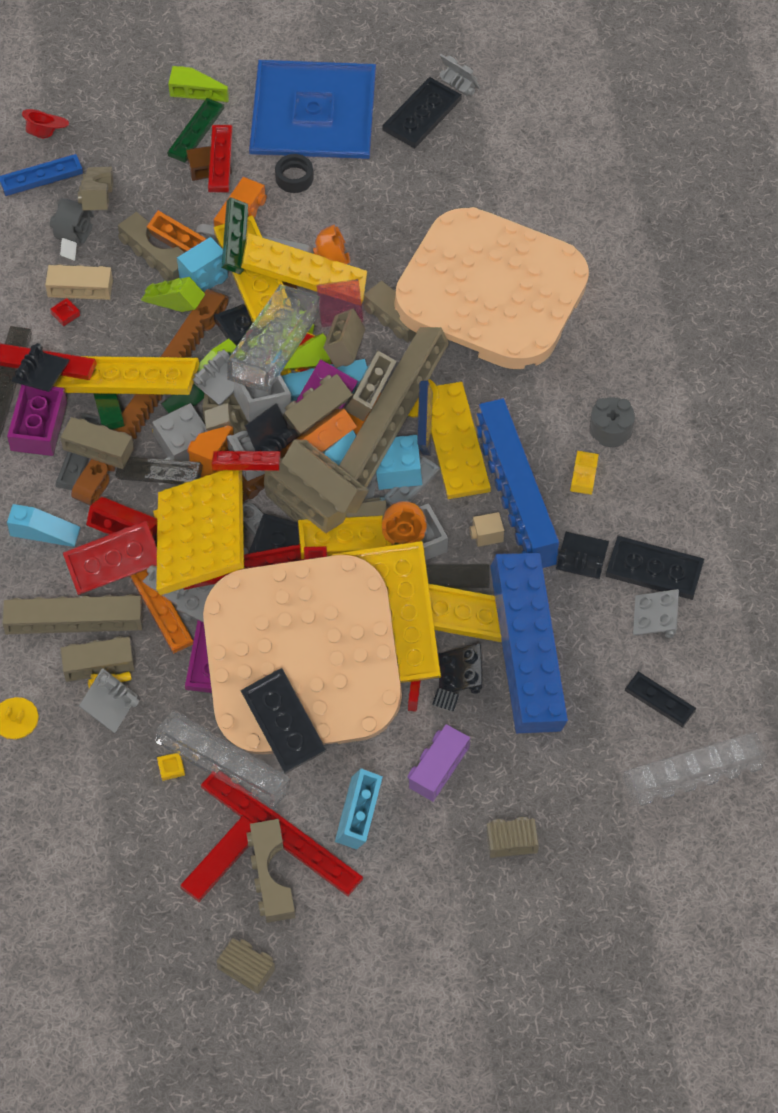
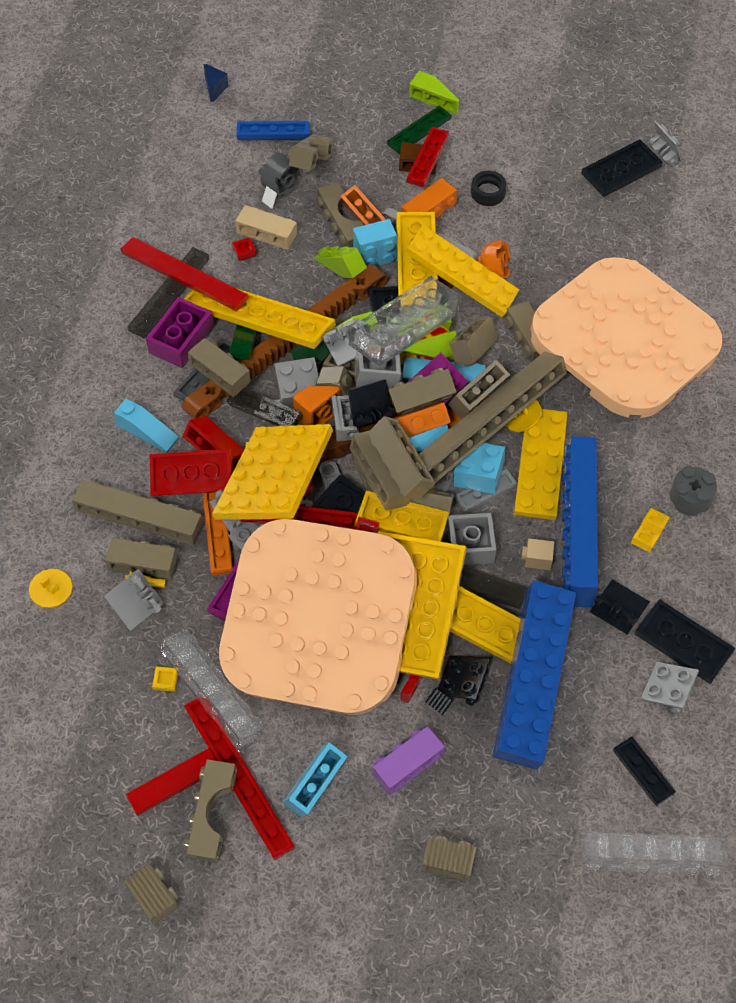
camera: 20 degrees right, 0 degrees up
(39, 369) = (196, 288): black hinge -> none
(42, 124) = (290, 88): red piece -> none
(234, 235) = (410, 223): dark green tile -> none
(246, 460) = (338, 422): red tile -> none
(283, 720) = (276, 672): black plate -> none
(313, 109) = (527, 140): blue tile -> none
(338, 298) = (483, 304): clear pink tile -> none
(403, 523) = (458, 524): orange cylinder -> none
(425, 418) = (518, 434): dark blue tile -> none

